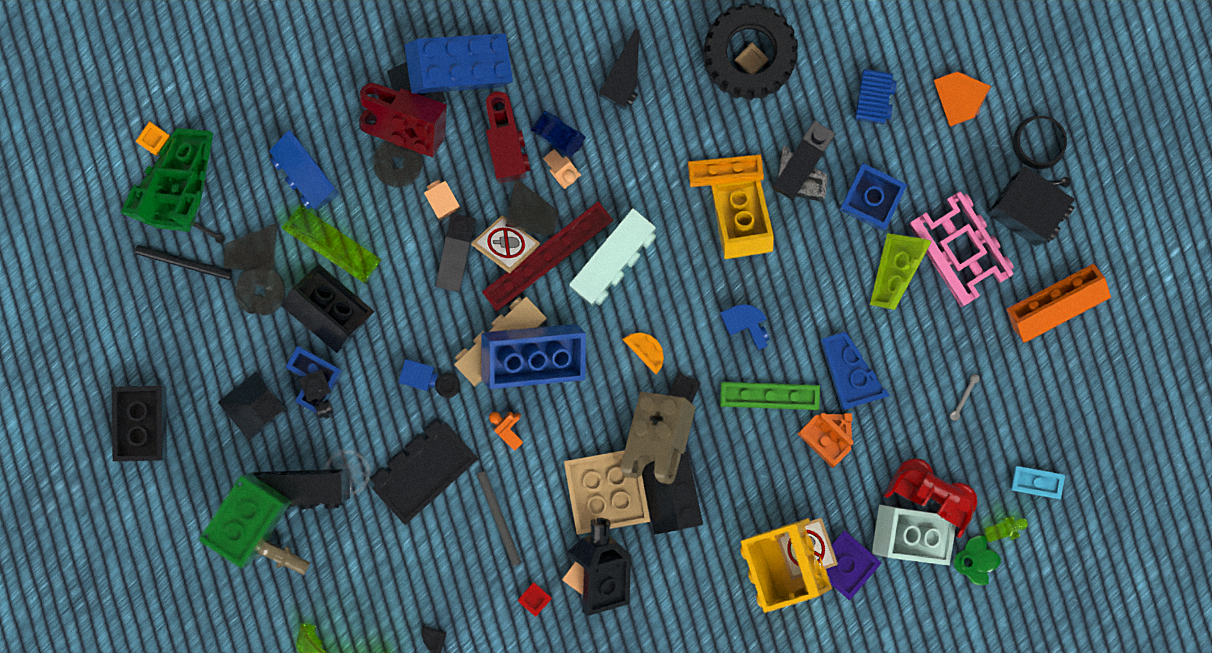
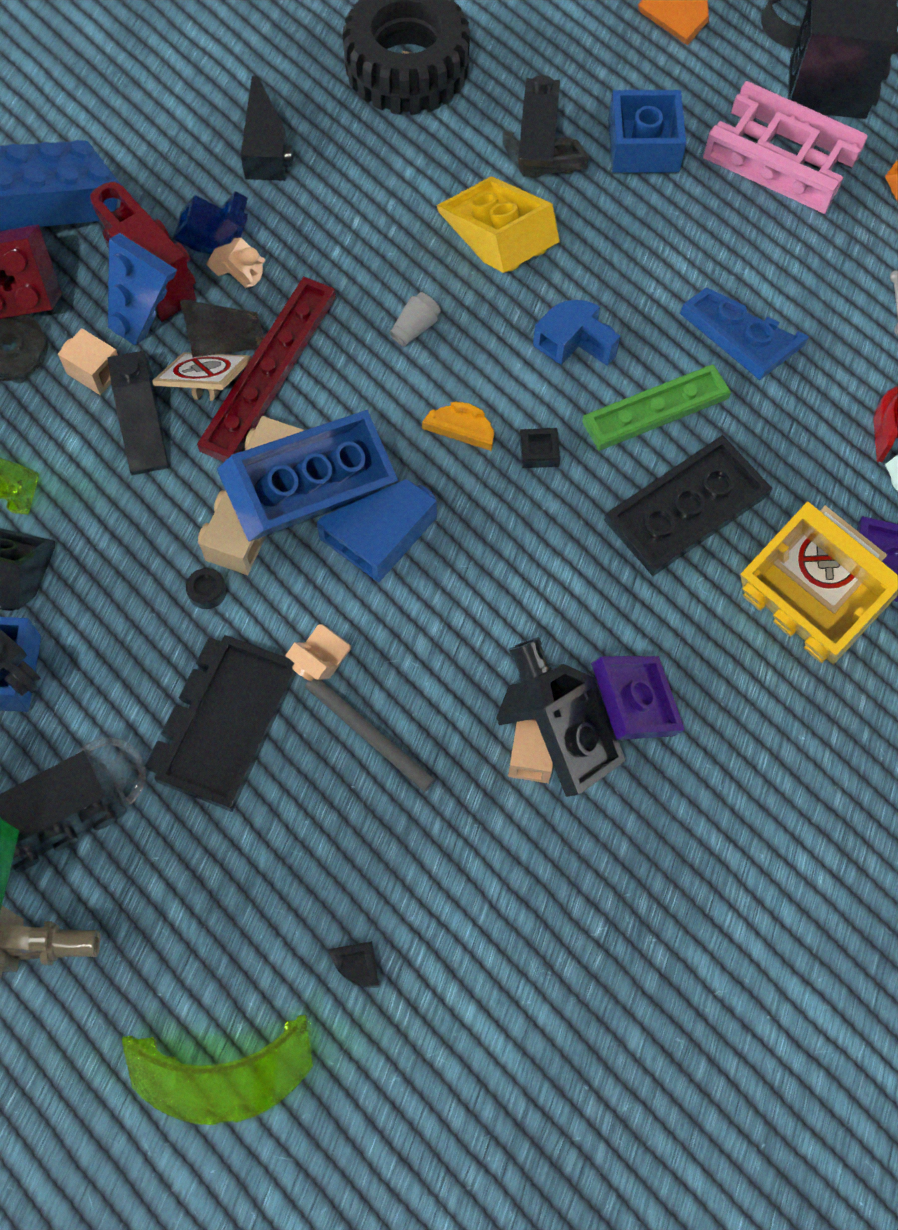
camera: 30 degrees left, 20 degrees down
(418, 375) = (154, 589): blue brick -> none
(487, 179) = (134, 288): none -> blue wing
(491, 462) = (319, 654): none -> light nougat bracket
(503, 426) = (317, 606): orange piece -> none
(534, 599) = (482, 821): red plate -> none
(564, 399) = (380, 526): none -> blue slope
(603, 491) = (500, 608): tan plate -> none
(612, 258) = (357, 323): light aqua brick -> none
(652, 575) = (637, 697): none -> dark purple plate
(653, 264) = (415, 318): none -> light grey cone
(657, 435) = (538, 498): dark tan brick -> none
(673, 504) = (600, 578): black slope -> none
(725, 170) = (447, 185): light orange tile -> none
(749, 471) = (687, 505): none -> black plate
(829, 436) = (764, 419): orange slope -> none
(874, 97) = (581, 42): blue brick -> none
(896, 268) = (724, 192): lime wing -> none

